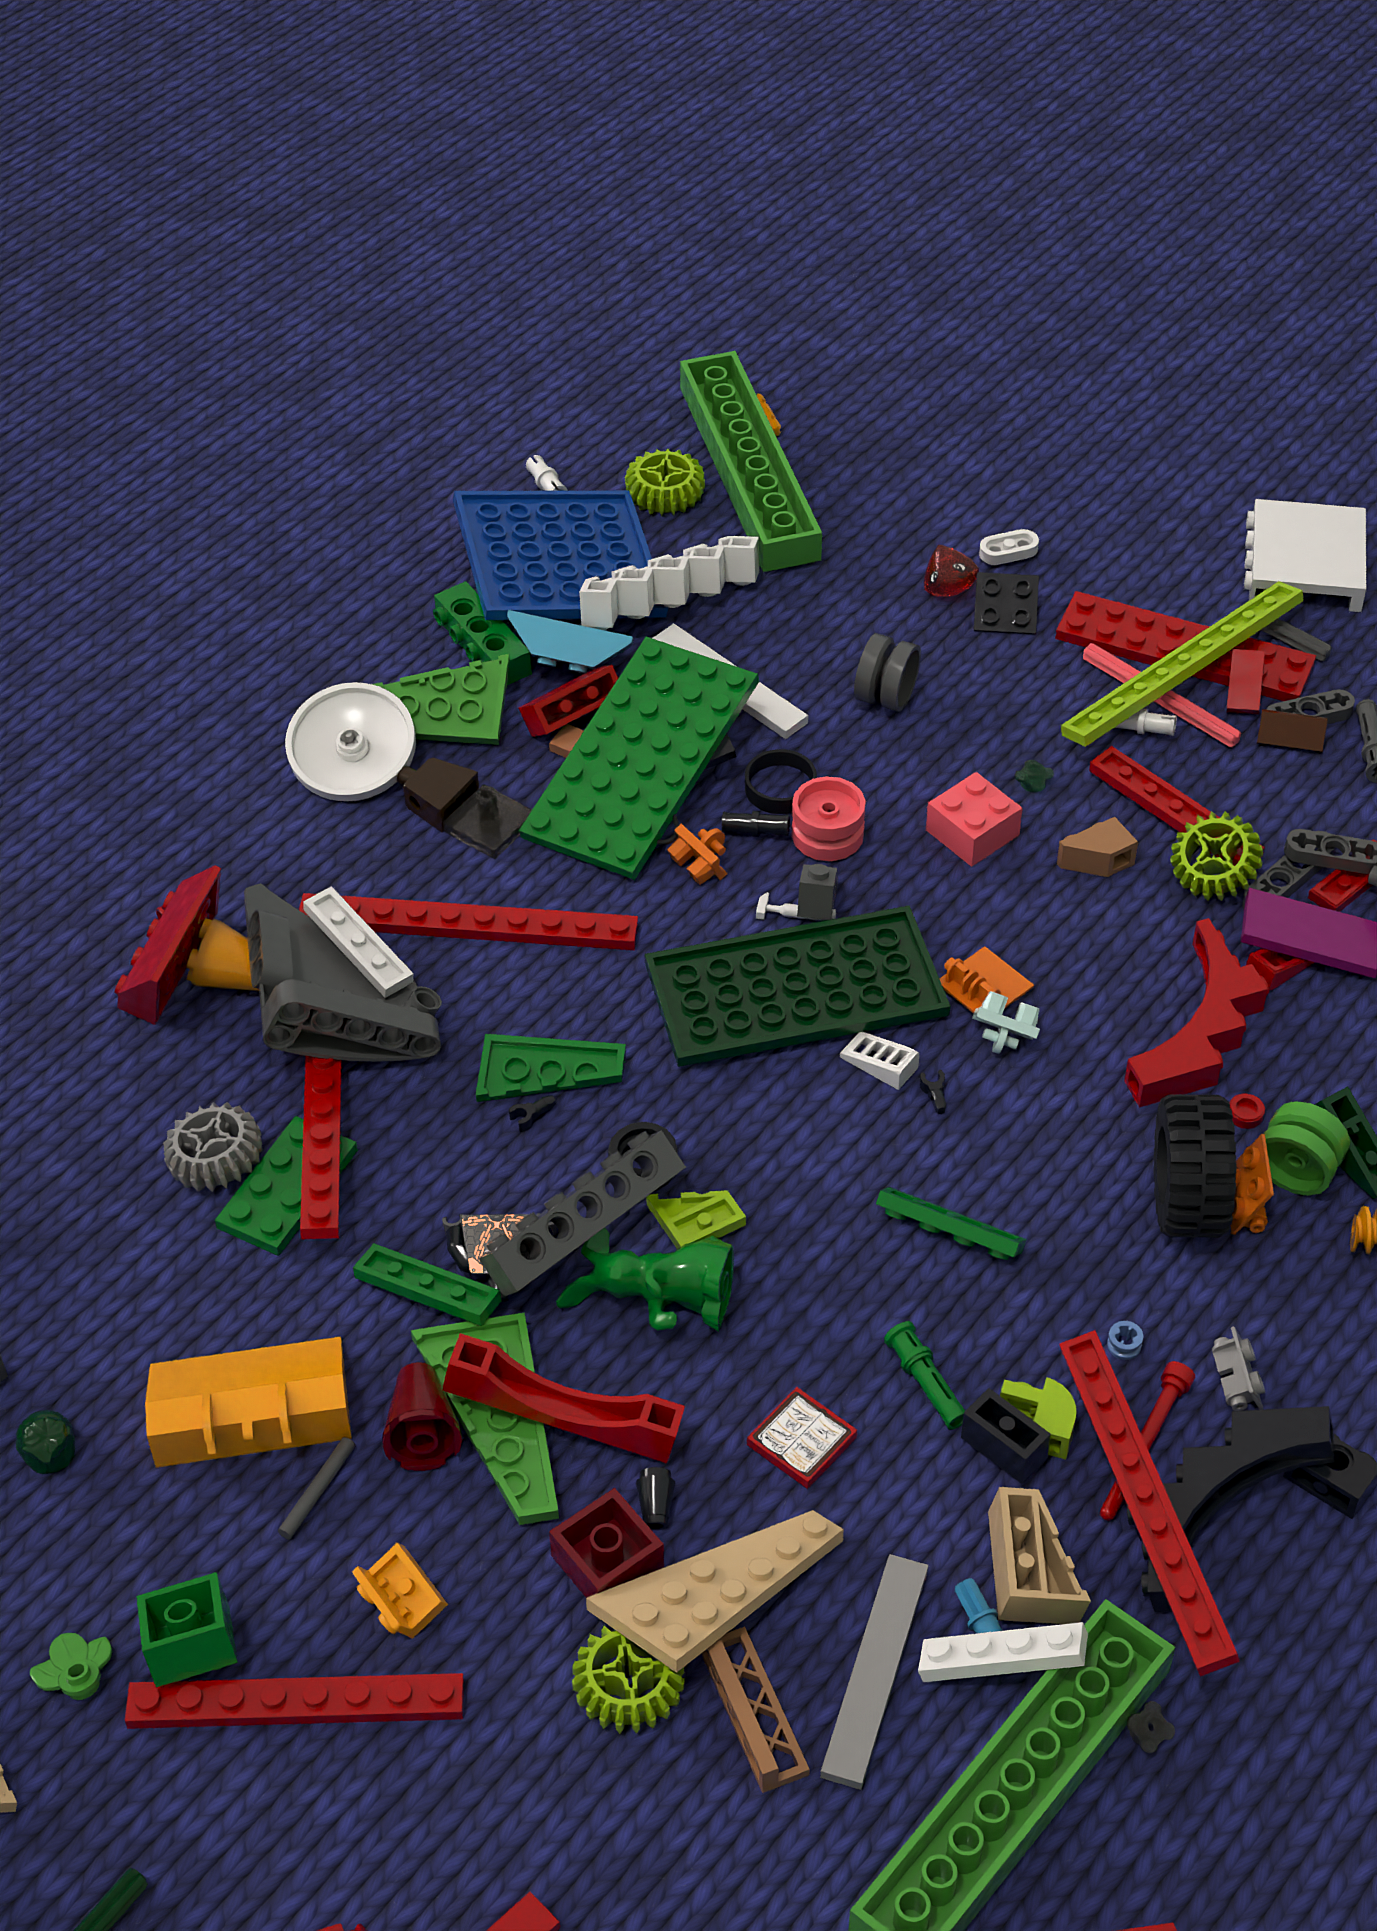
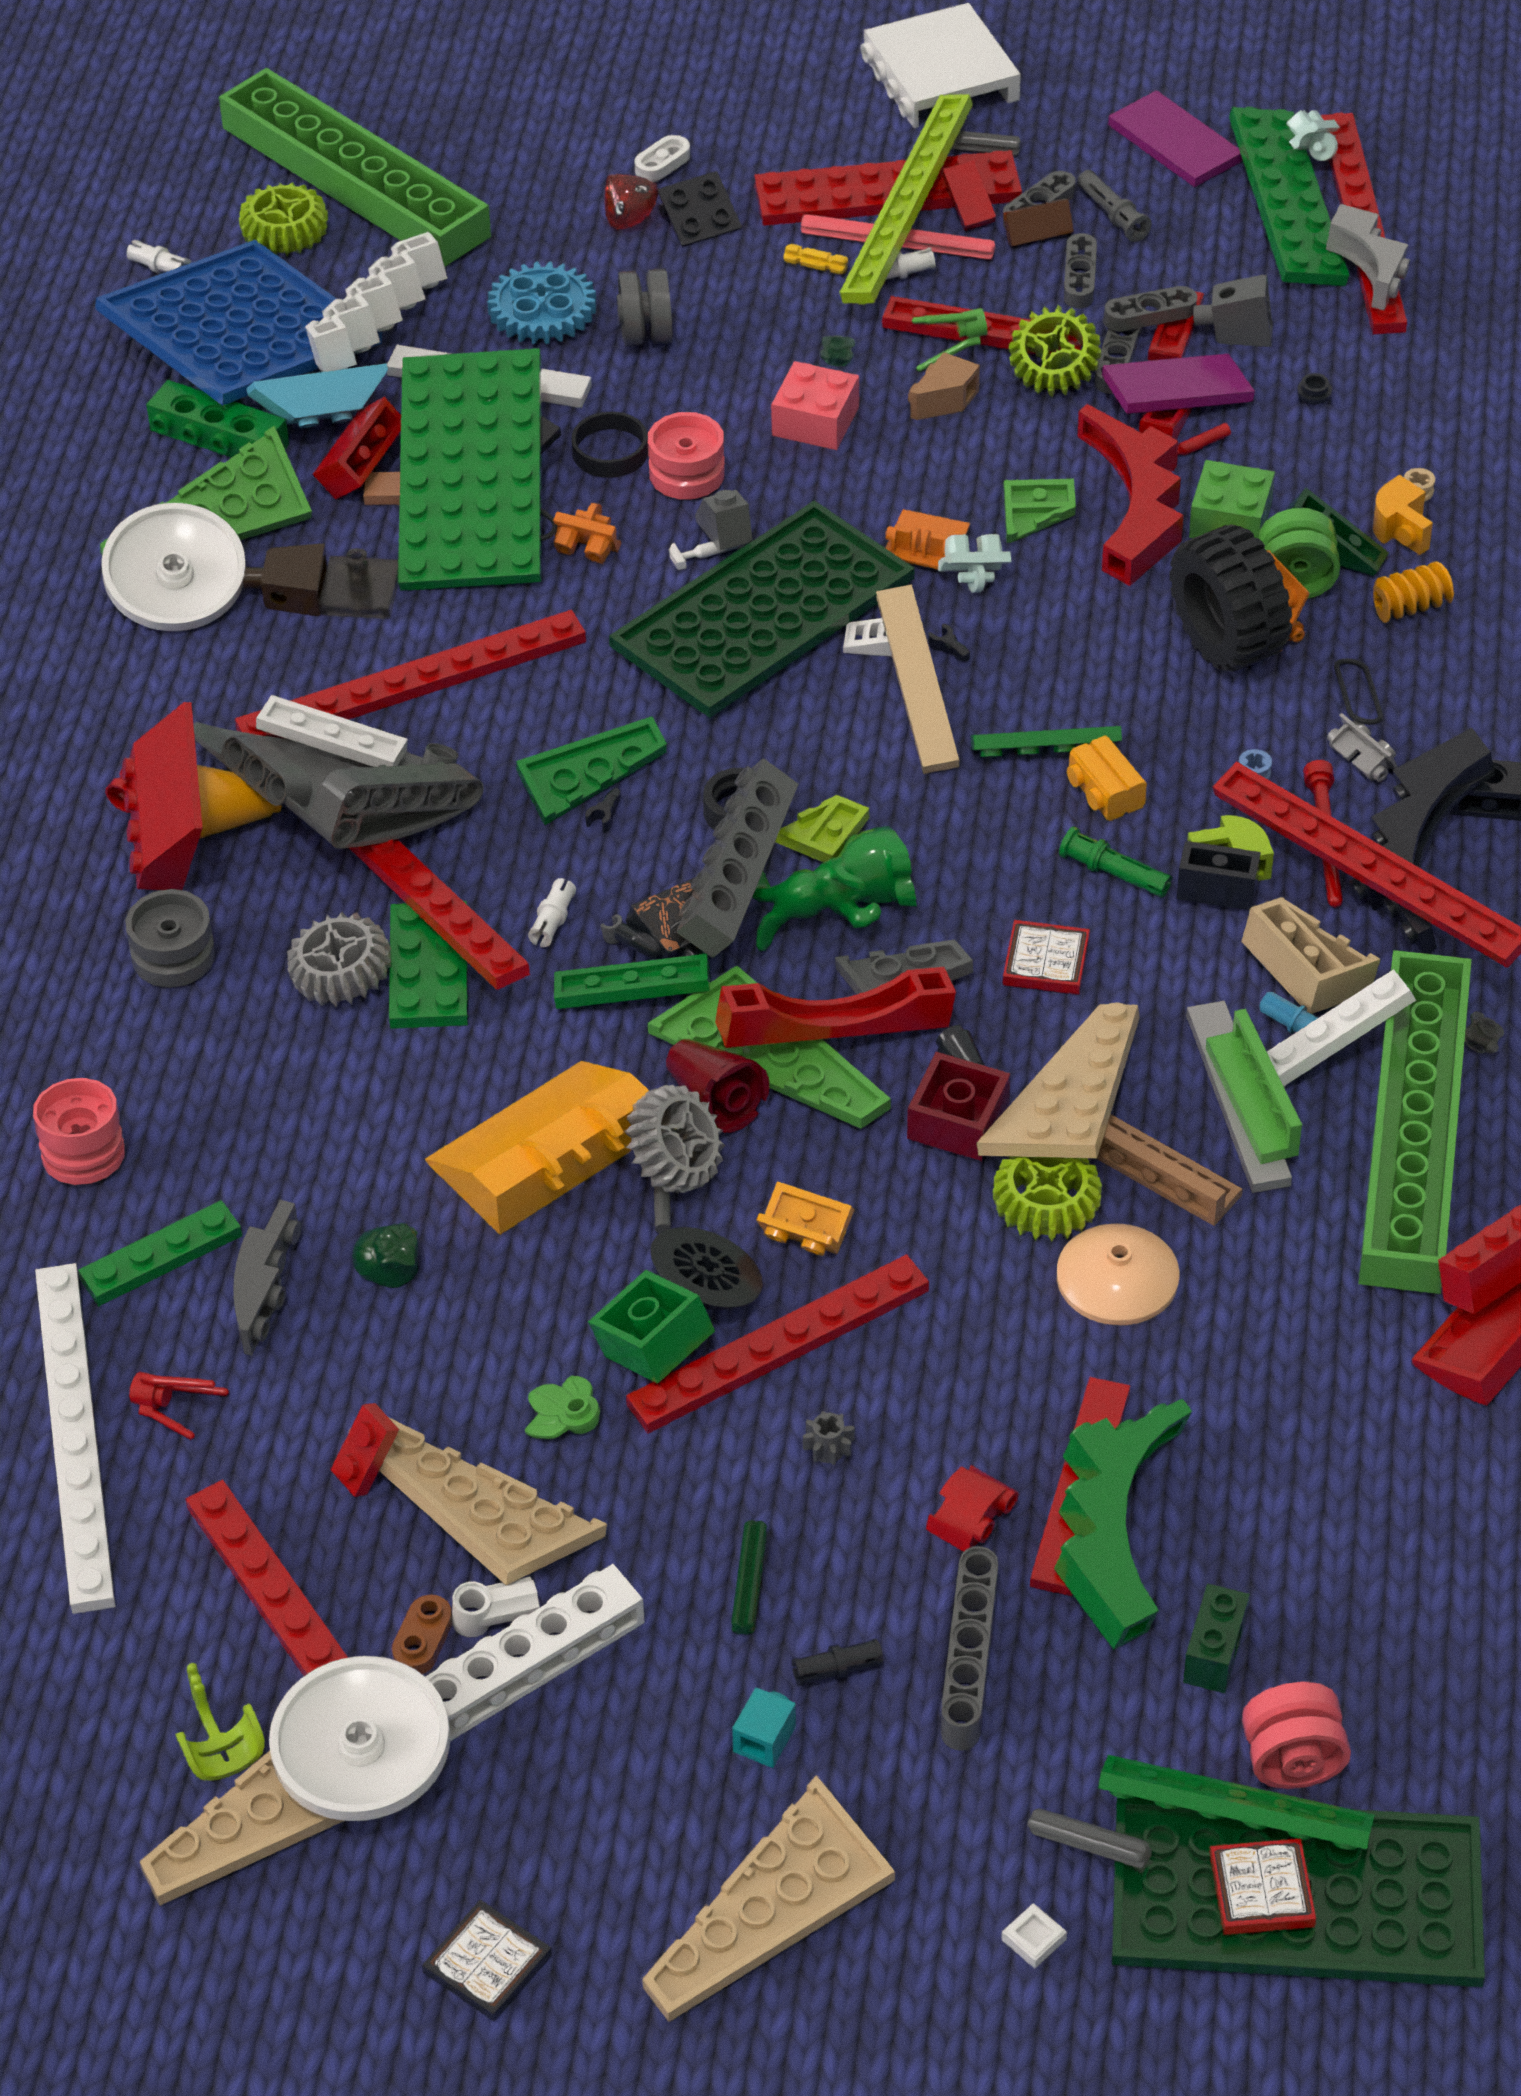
camera: 30 degrees left, 0 degrees up
(98, 1064) = (170, 938): none -> dark grey wheel
(265, 1834) = (828, 1437): none -> dark grey gear
(302, 1570) = (707, 1266): none -> black piece
(328, 1469) = (674, 1139): none -> light grey gear
(415, 1186) = (552, 912): none -> white pin
(641, 1818) = (1117, 1288): none -> light nougat dish
(700, 1393) = (881, 968): none -> dark grey wing
(756, 823) = (618, 488): black pin -> none
(815, 634) = (541, 302): none -> dark azure gear
(874, 1114) = (917, 679): none -> tan tile
(881, 1678) = (1255, 1090): none -> bright green fence
(977, 1287) = (1106, 778): none -> light orange brick
(1073, 685) = (816, 259): none -> yellow axle
(1103, 994) = (1036, 505): none -> bright green wing
(1156, 799) = (968, 323): none -> bright green plant
(1272, 1346) = (1371, 686): none -> black piece
(1280, 1067) = (1231, 496): none -> bright green brick
(1300, 996) = (1203, 439): none -> red piece
(1301, 801) = (1074, 279): none -> dark grey beam

